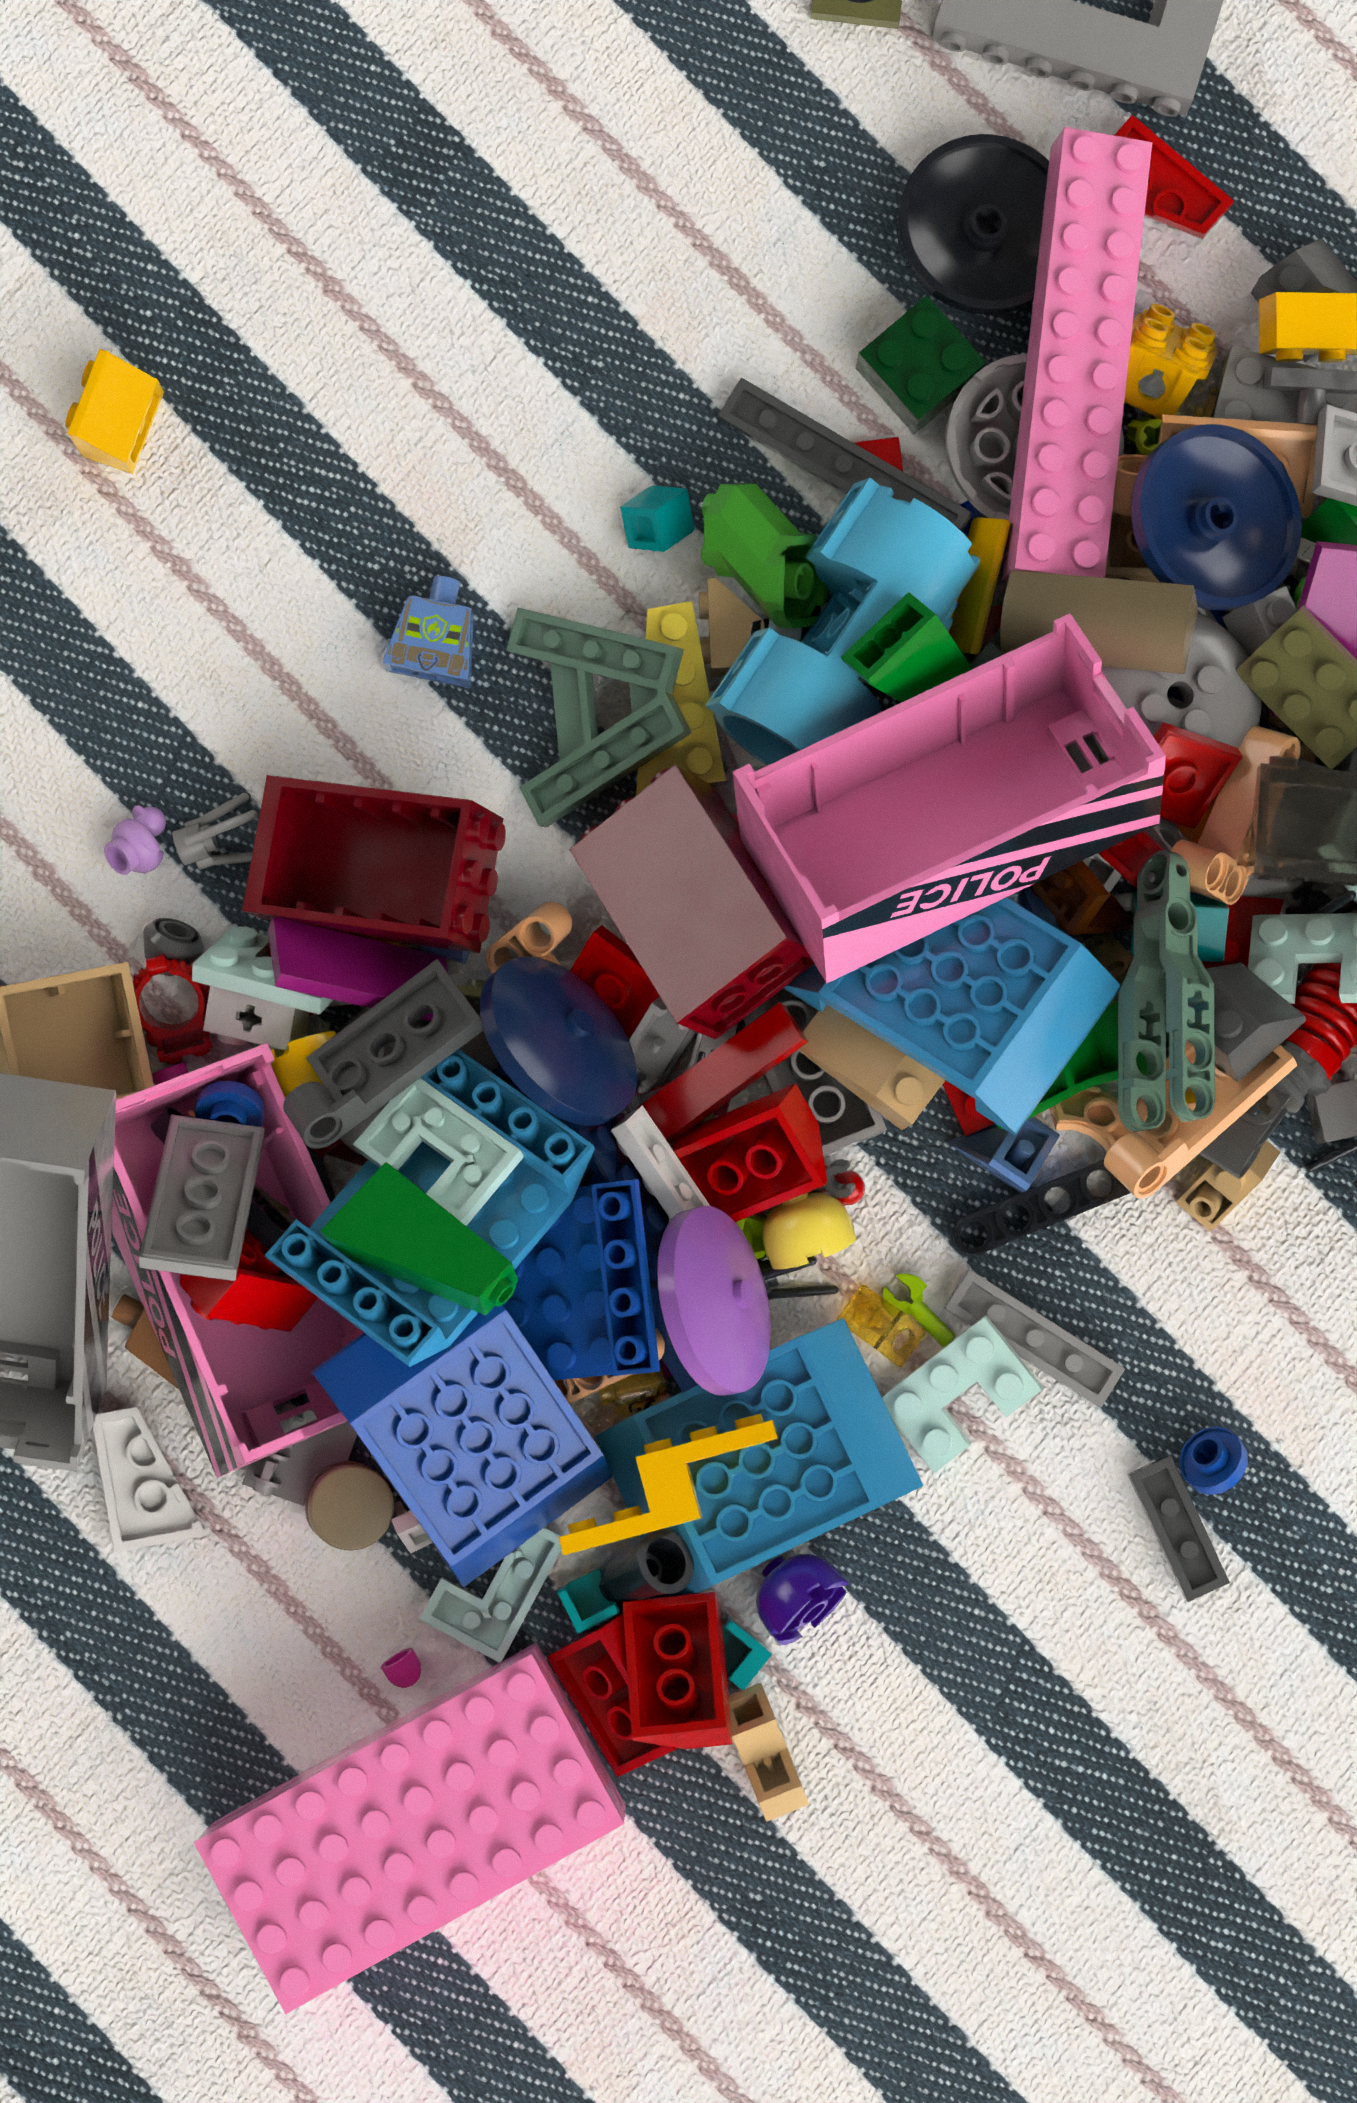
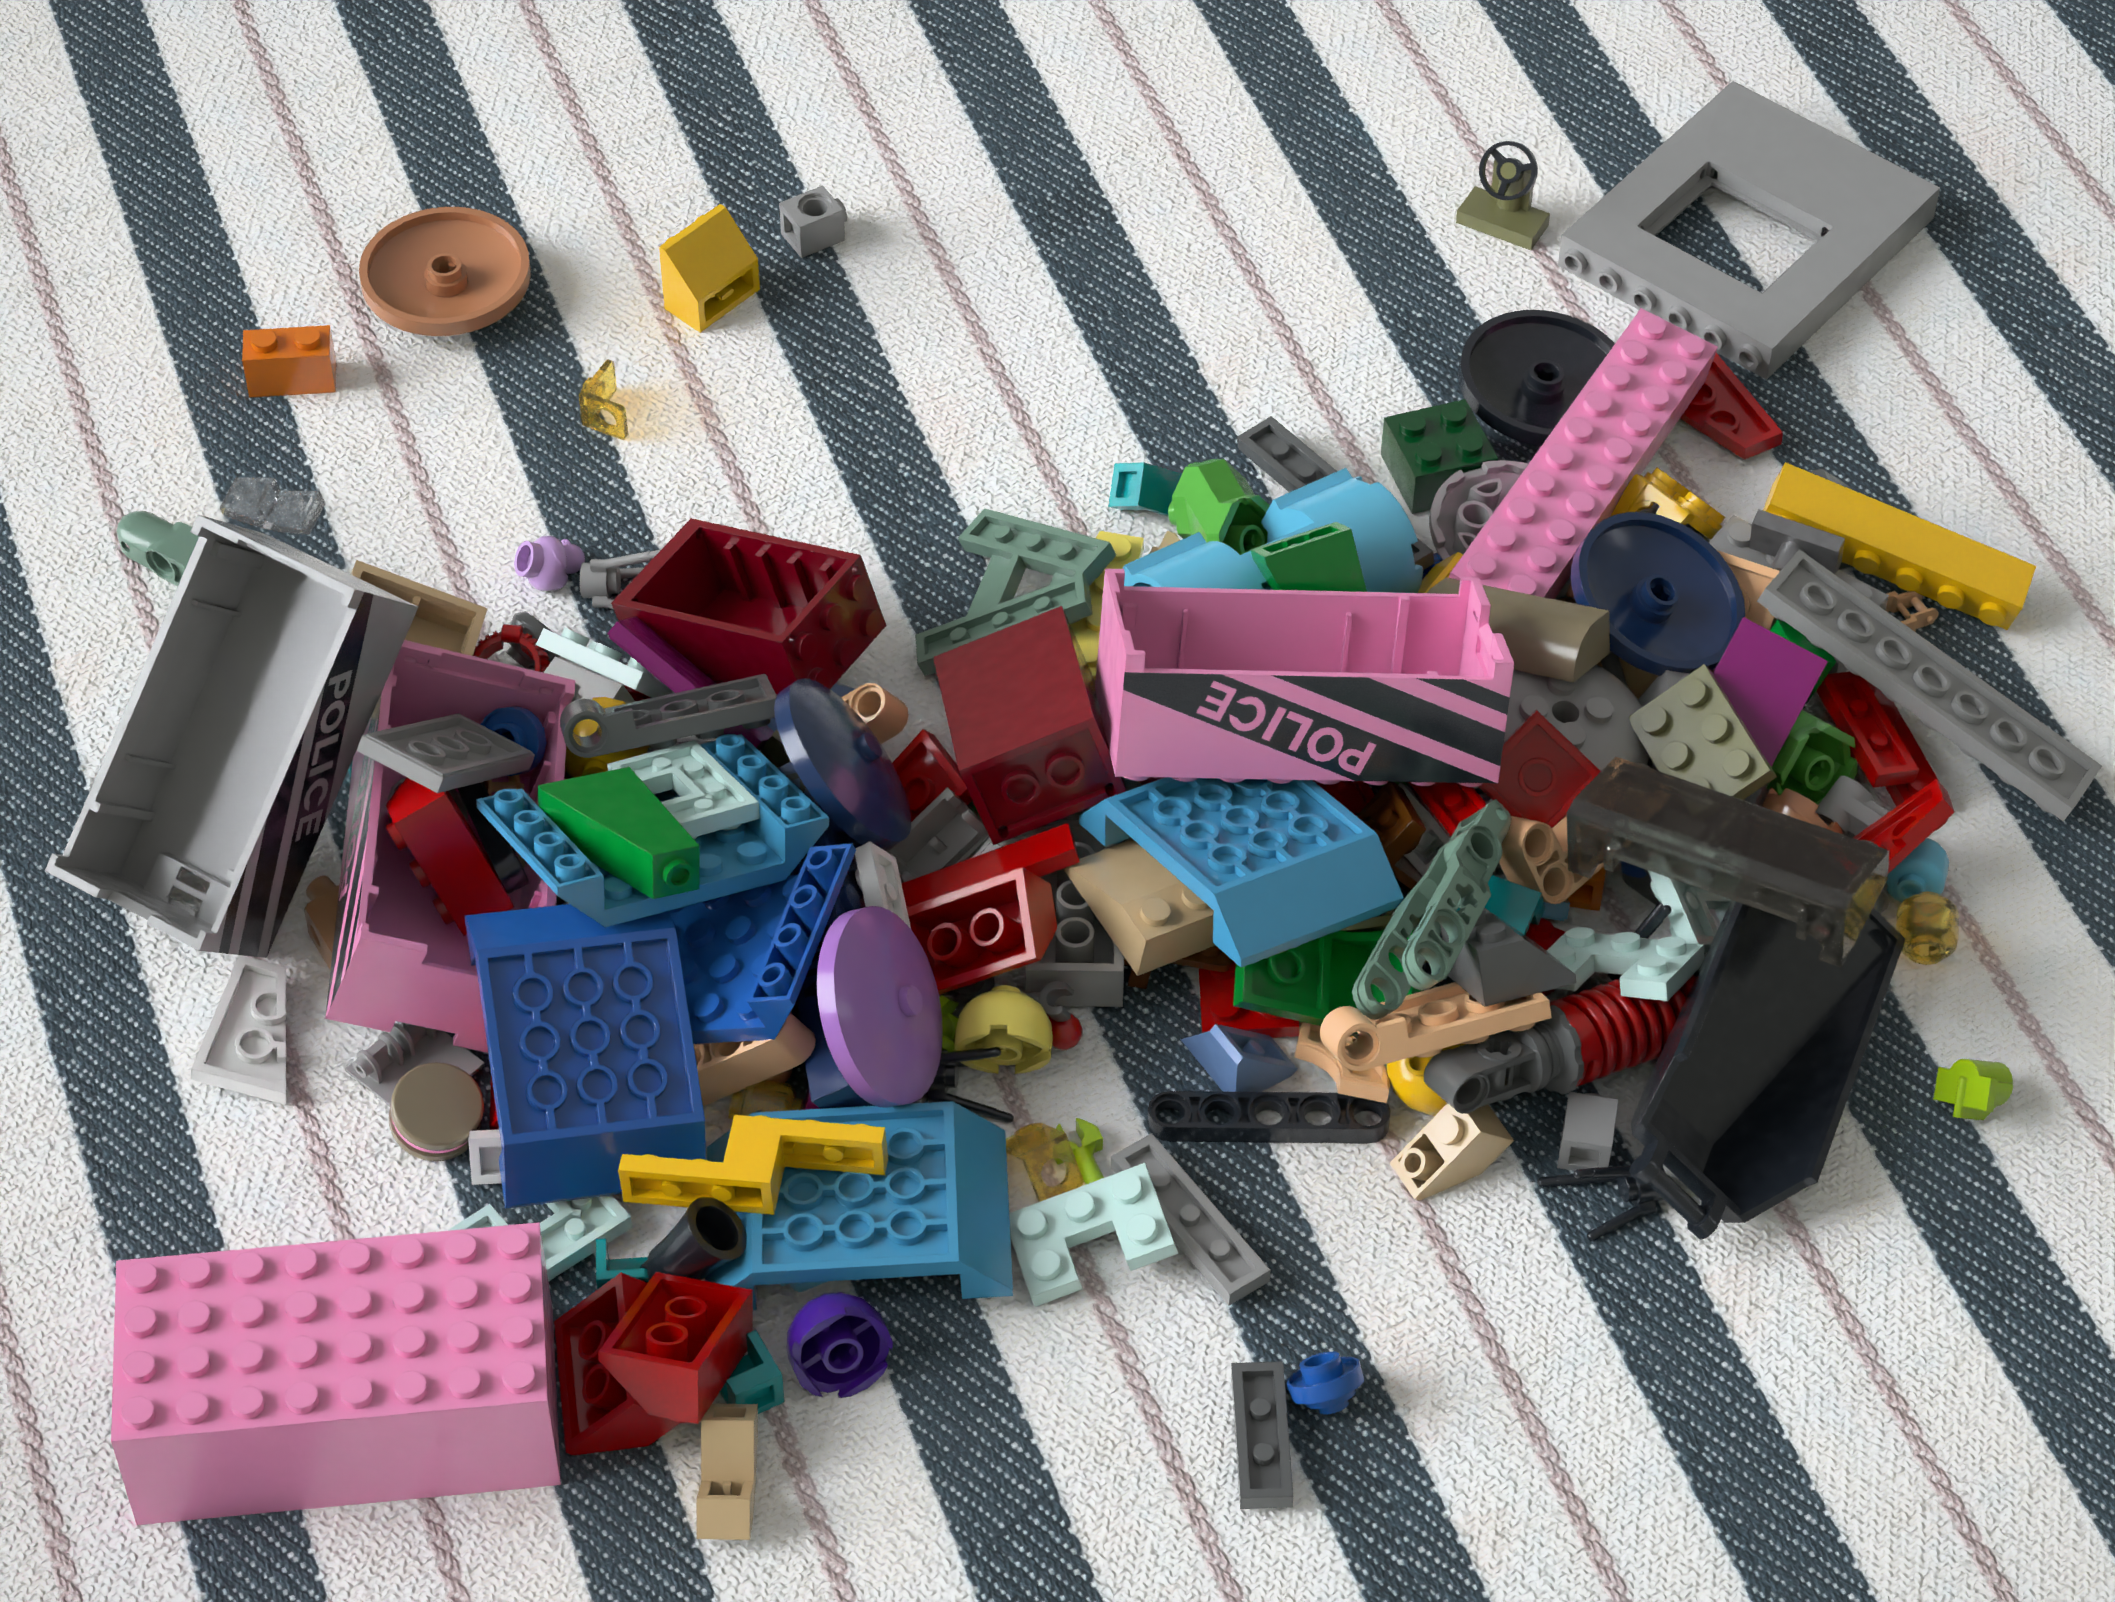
camera: 25 degrees right, 35 degrees down
(75, 614) = (596, 396): none -> clear yellow bracket
(181, 309) = (812, 221): none -> light grey brick
(433, 637) = (895, 507): medium blue torso -> none

